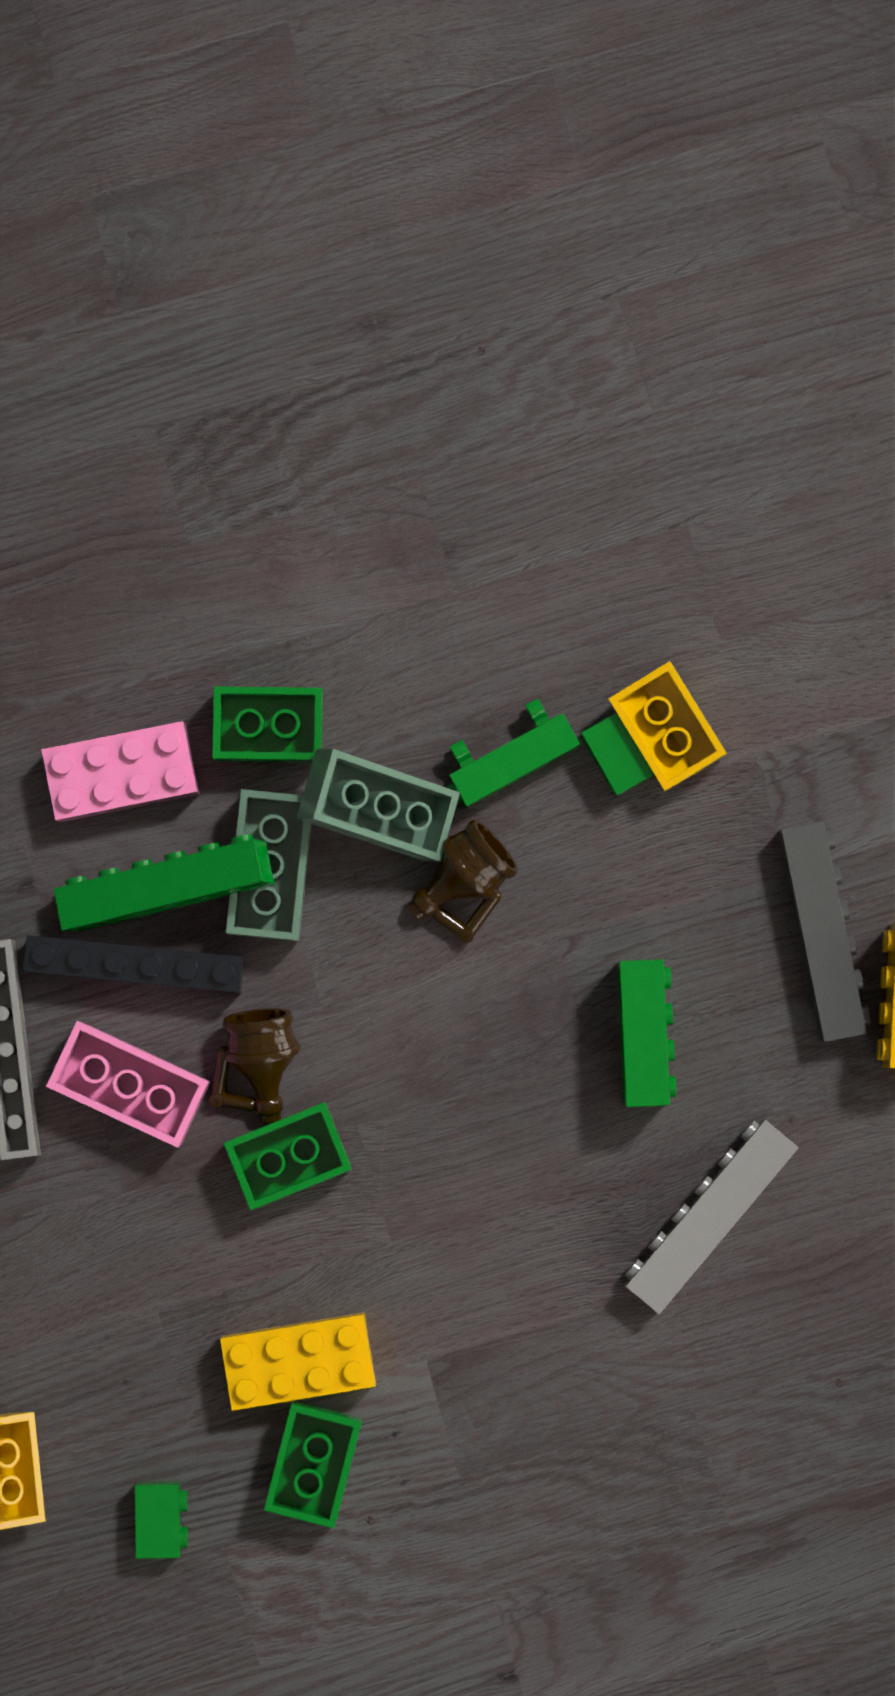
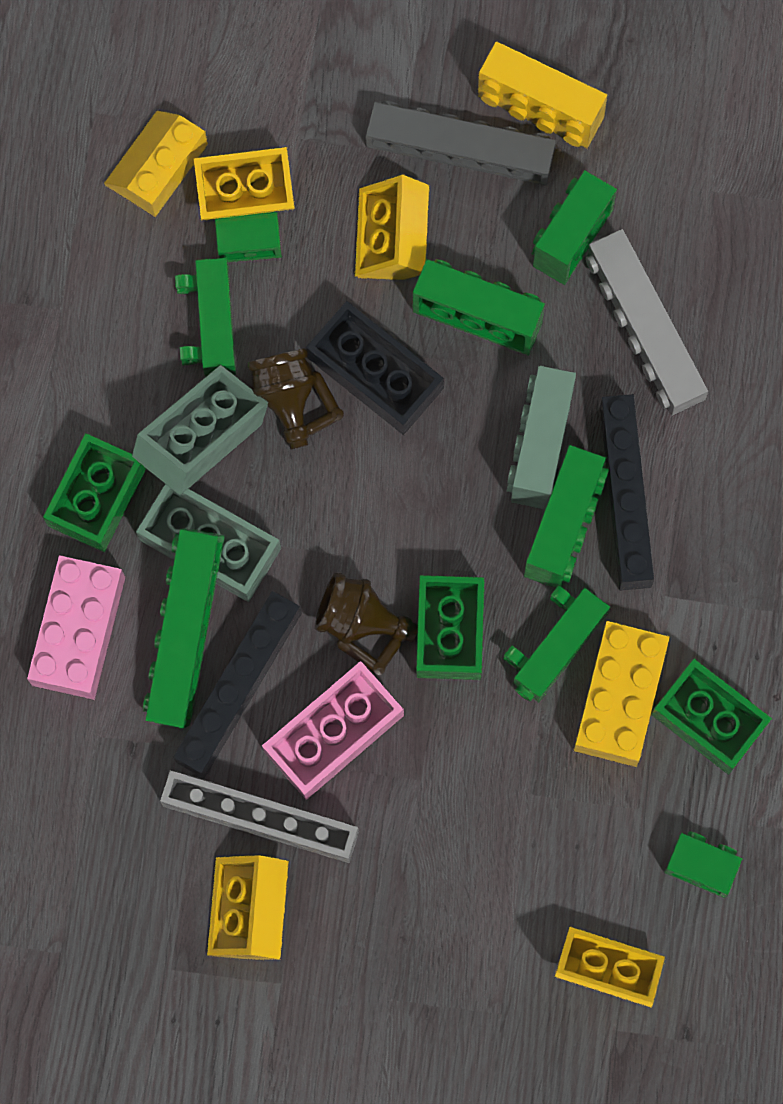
camera: 60 degrees left, 10 degrees down
(320, 1275) = (560, 645): none -> green brick
(455, 1224) = (568, 509): none -> green brick
(514, 1274) = (626, 492): none -> black brick
(531, 953) = (375, 367): none -> black brick
(531, 1163) = (543, 431): none -> sand green brick
(659, 617) = (157, 161): none -> yellow slope
(693, 902) = (392, 229): none -> yellow slope
(777, 1093) = (573, 226): none -> green brick

